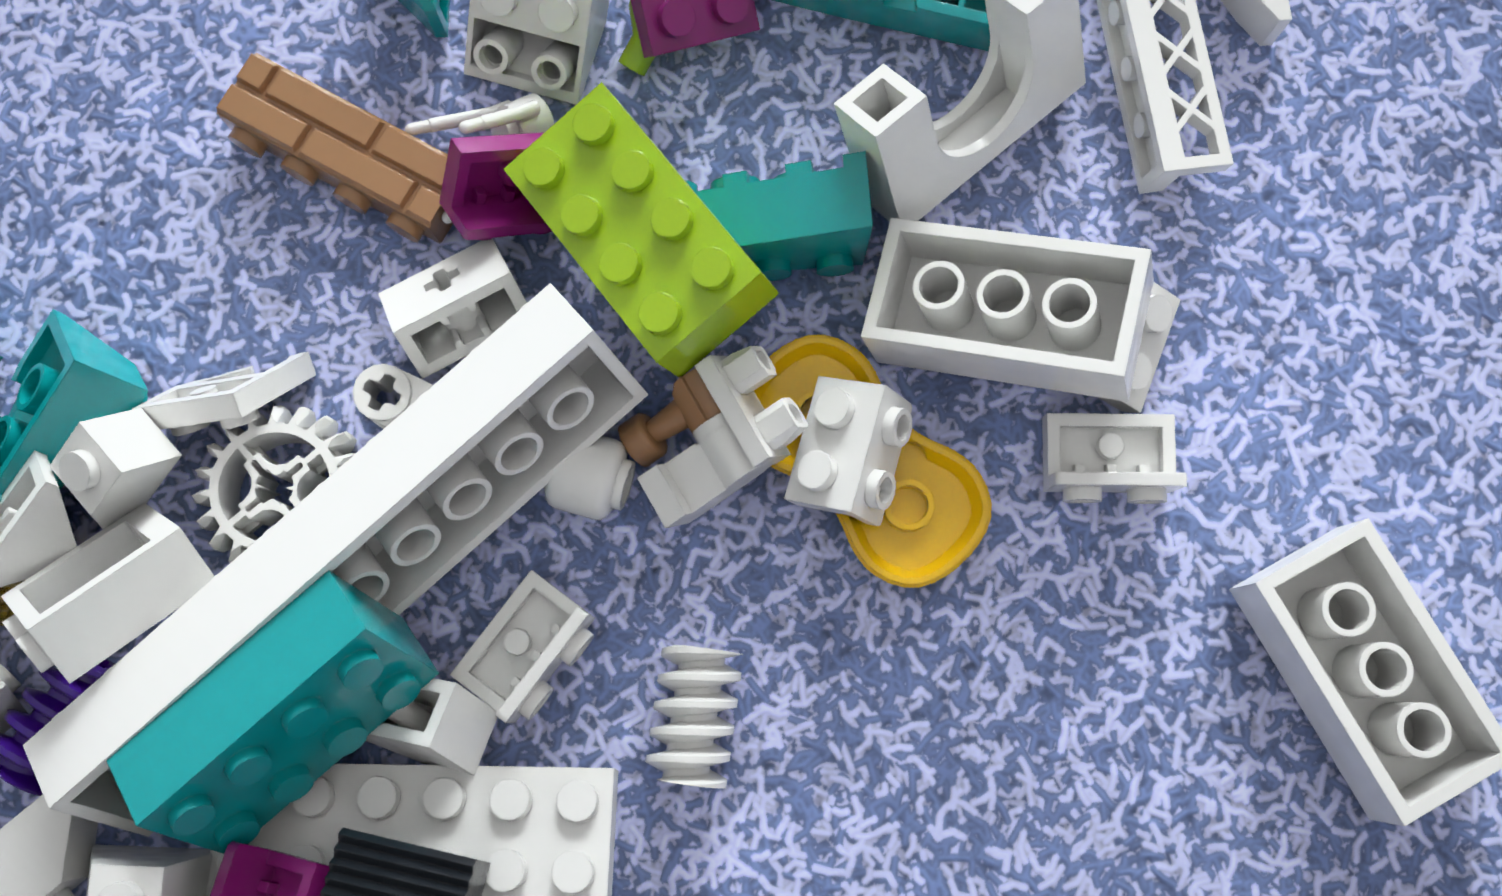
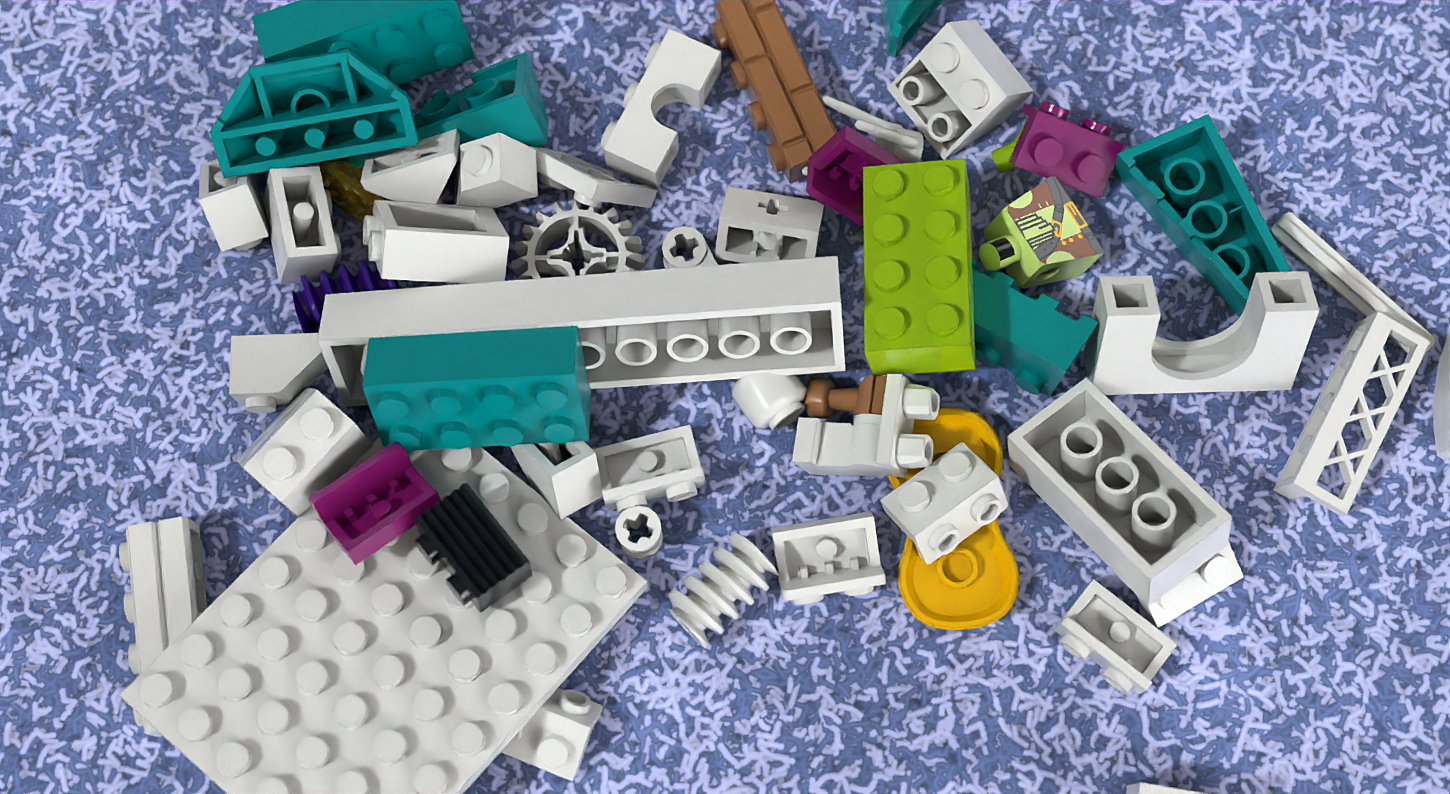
camera: 40 degrees right, 5 degrees down
(230, 215) = (676, 72): none -> white arch
(550, 709) = (633, 518): none -> white bush
(735, 111) = (1040, 238): none -> torso
(776, 596) = (827, 557): none -> white bracket

